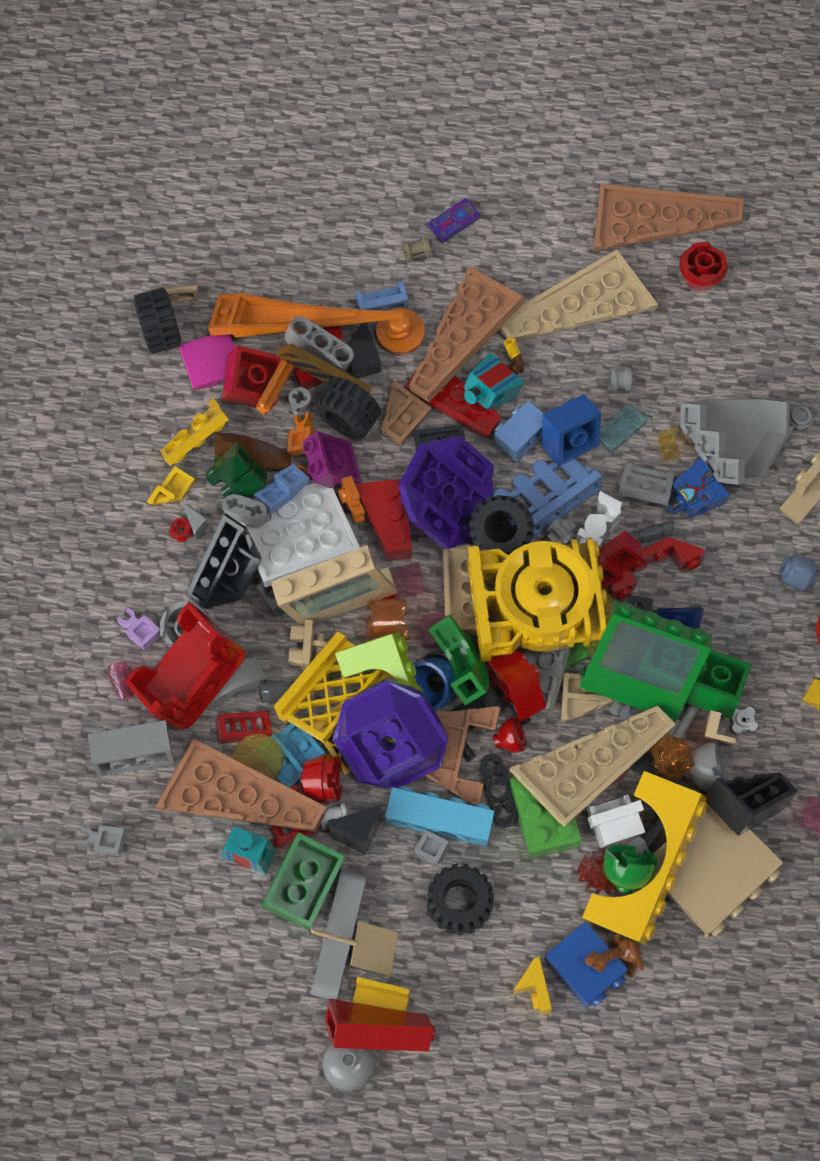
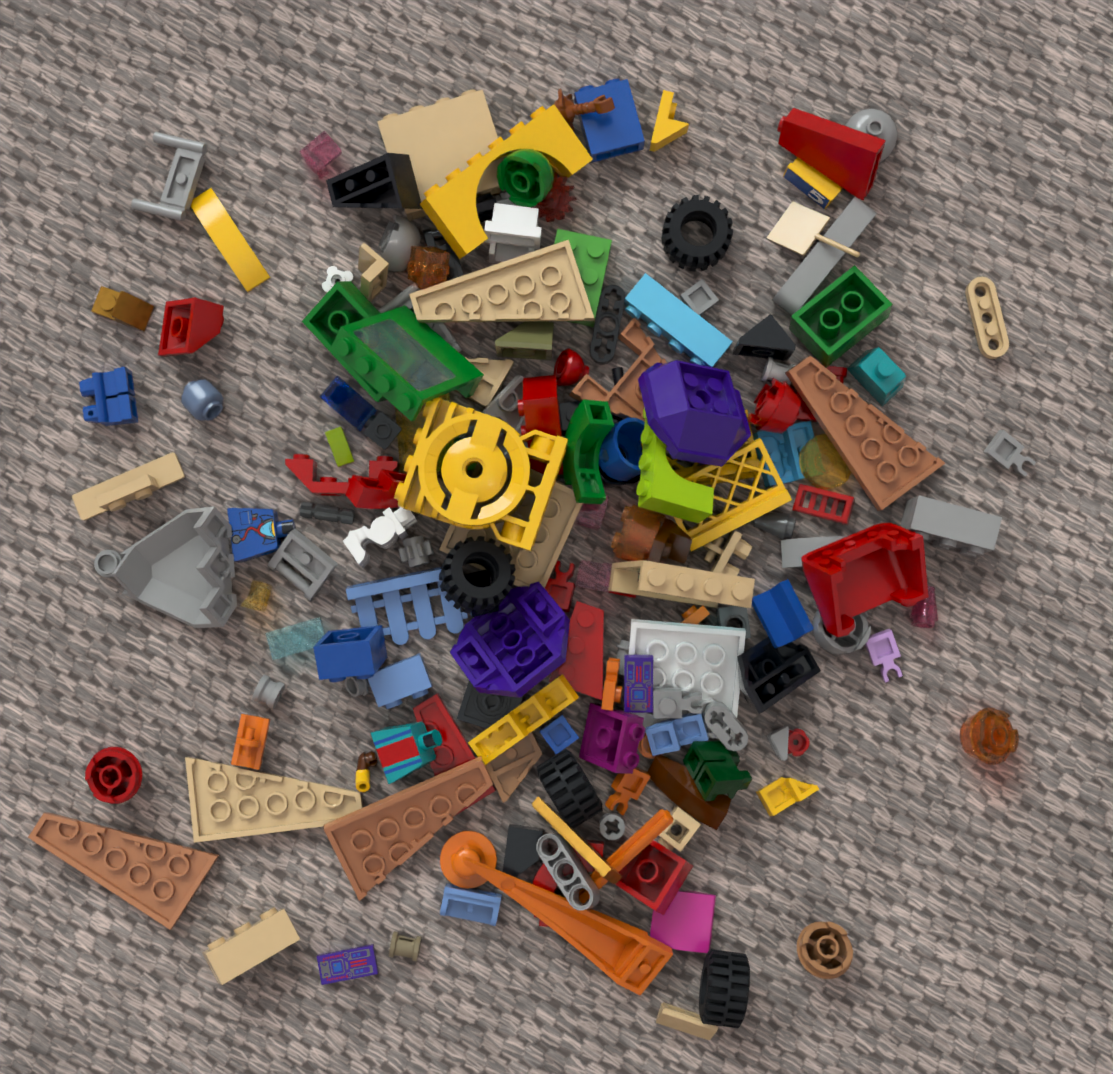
camera: 155 degrees left, 15 degrees up
(25, 598) = (989, 736): none -> clear orange cone
(90, 382) = (824, 950): none -> medium nougat cone
(166, 938) = (989, 306): none -> tan plate
(202, 426) = (725, 843): yellow wing -> none
(240, 617) = (782, 614): none -> blue panel
(244, 413) = (688, 828): none -> tan brick
(296, 506) = (670, 703): none -> light grey plate
(331, 508) = (638, 683): none -> dark purple tile
(359, 628) = (670, 544): none -> reddish brown slope
(375, 448) = (559, 734): none -> blue panel
(412, 433) = (523, 719): none -> yellow slope
(430, 556) = (560, 588): none -> red plate
(534, 197) = (250, 945): none -> tan wedge
(556, 732) = (527, 341): none -> olive slope
(614, 337) = (250, 741): none -> orange hips
(668, 590) = (339, 446): none -> lime piece

